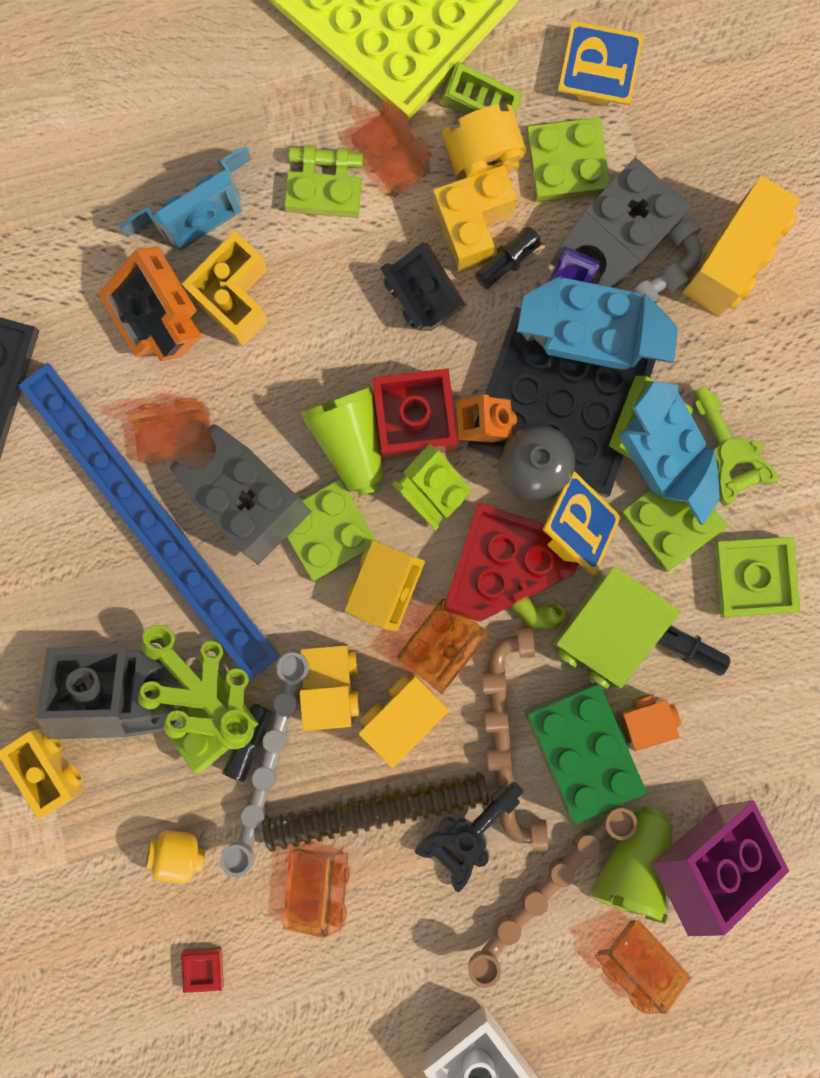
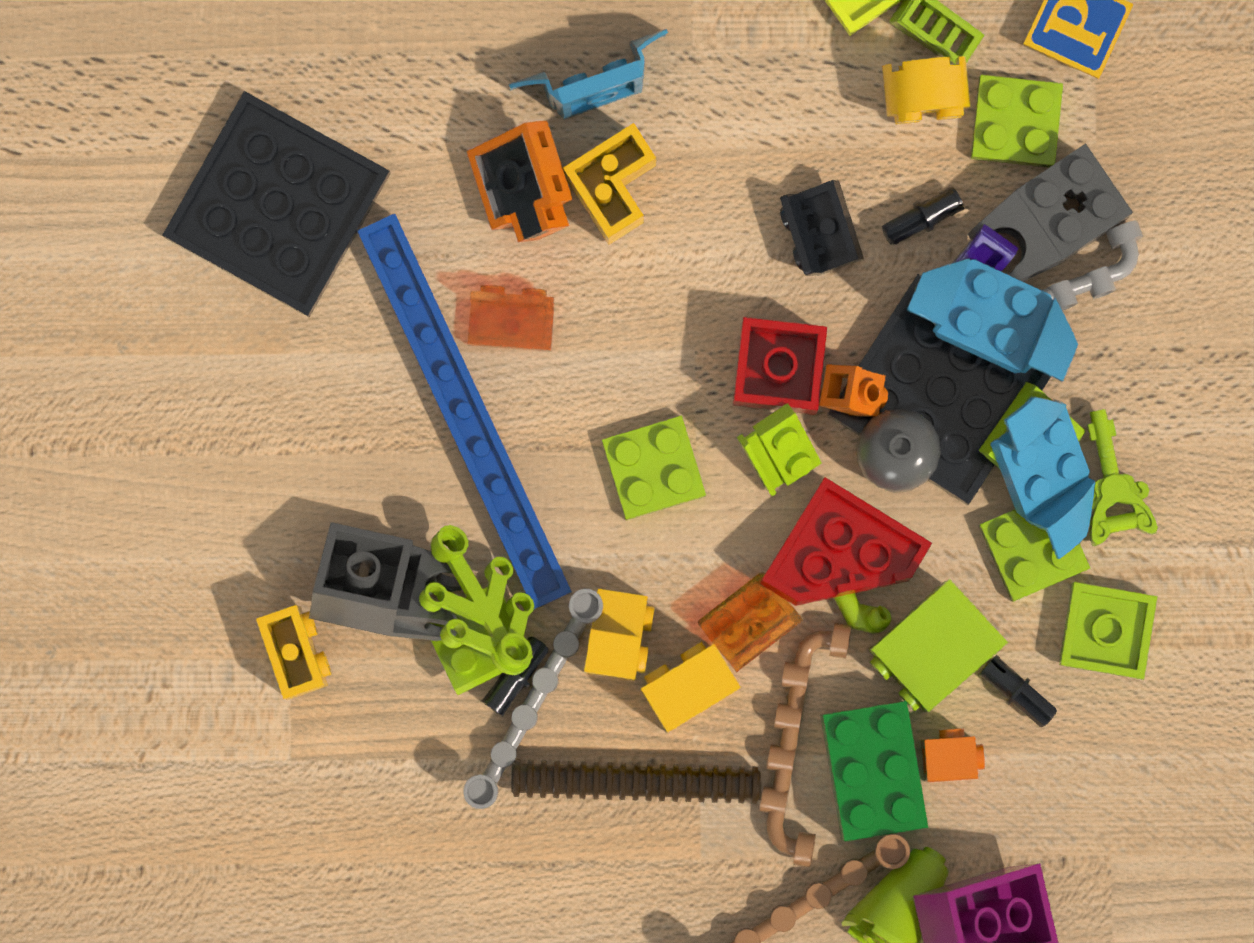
camera: 15 degrees right, 0 degrees up
(174, 856) = (410, 776): yellow head -> none
(202, 970) = (410, 905): red tile -> none
(242, 497) = (567, 395): dark grey brick -> none
(316, 892) = (551, 851): clear orange bracket -> none
(324, 193) = (737, 94): lime plate -> none
(350, 438) = (703, 374): lime cone -> none
(383, 586) = (702, 542): yellow brick -> none
(393, 150) = (825, 66): clear orange bracket -> none
(467, 209) = (888, 153): yellow brick -> none
(468, 837) = (728, 832): black piece -> none
(581, 525) = (929, 528): piece -> none
(743, 247) = (1178, 270): yellow brick -> none

